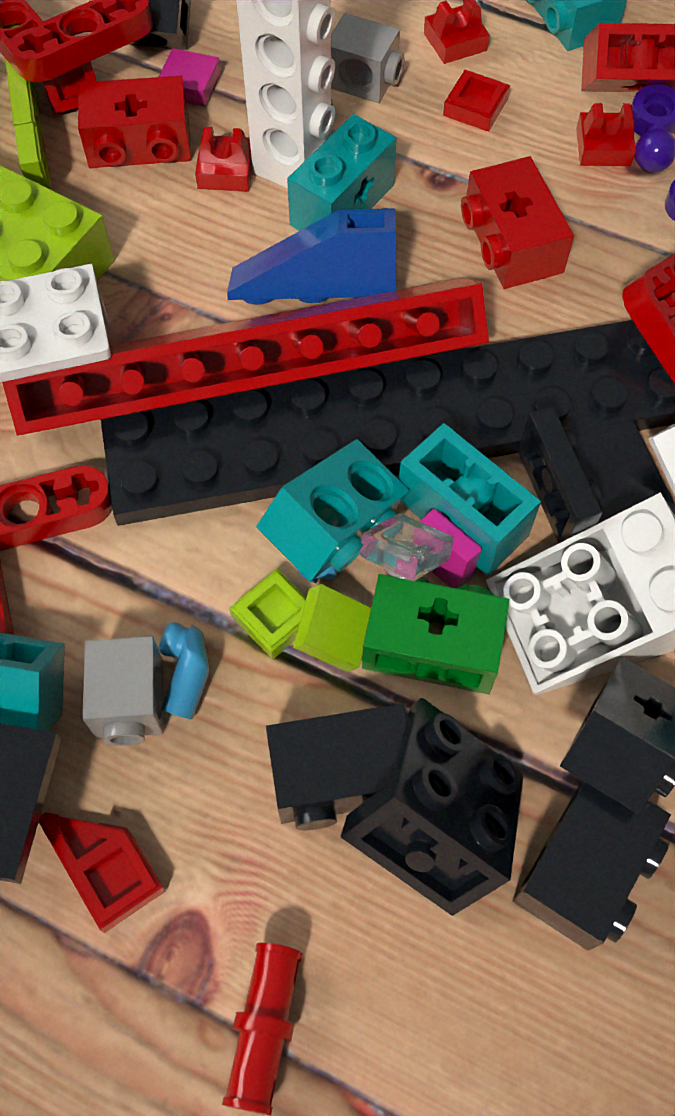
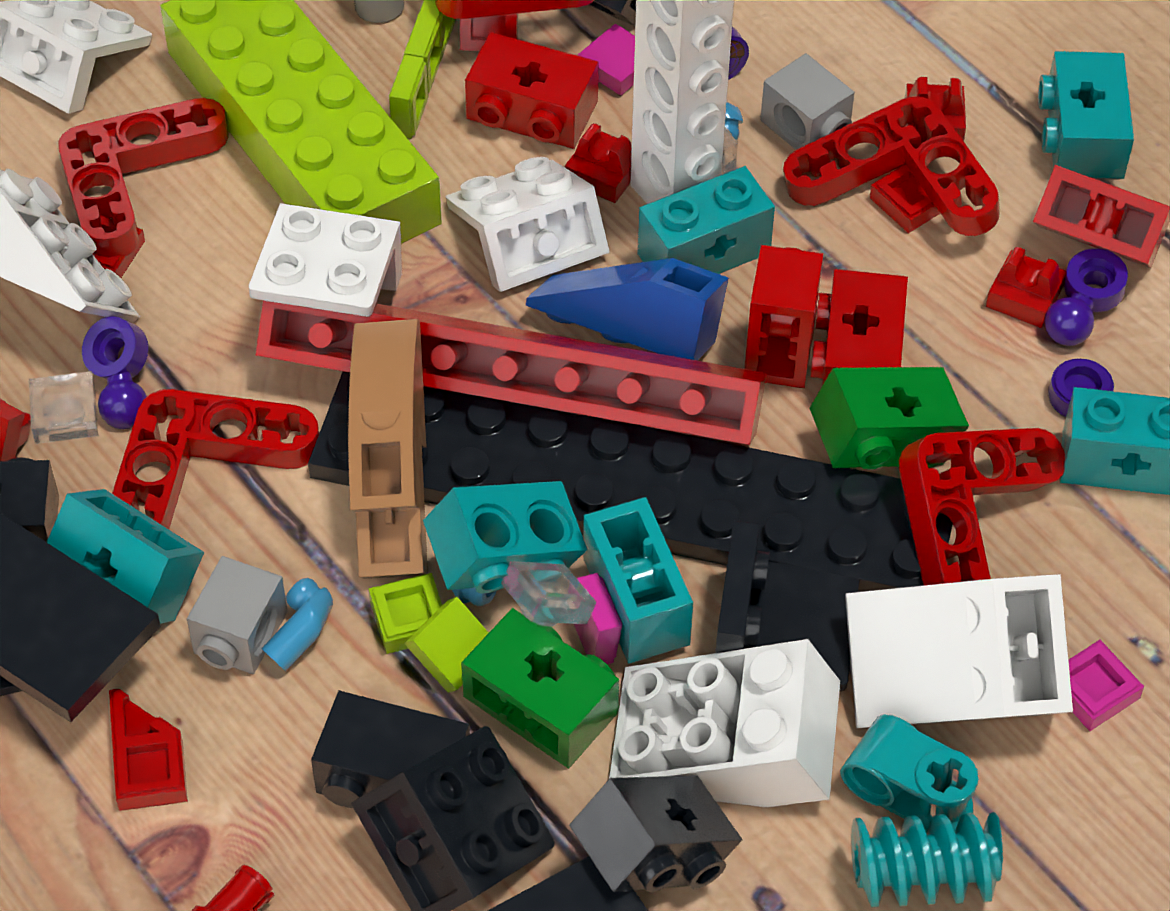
camera: 25 degrees right, 10 degrees down
(186, 471) = (387, 447): none -> medium nougat slope
(196, 225) = (532, 221): none -> white bracket
(453, 62) = (897, 147): none -> red beam
(455, 219) = (783, 314): none -> red brick
(580, 275) = (879, 411): none -> green brick

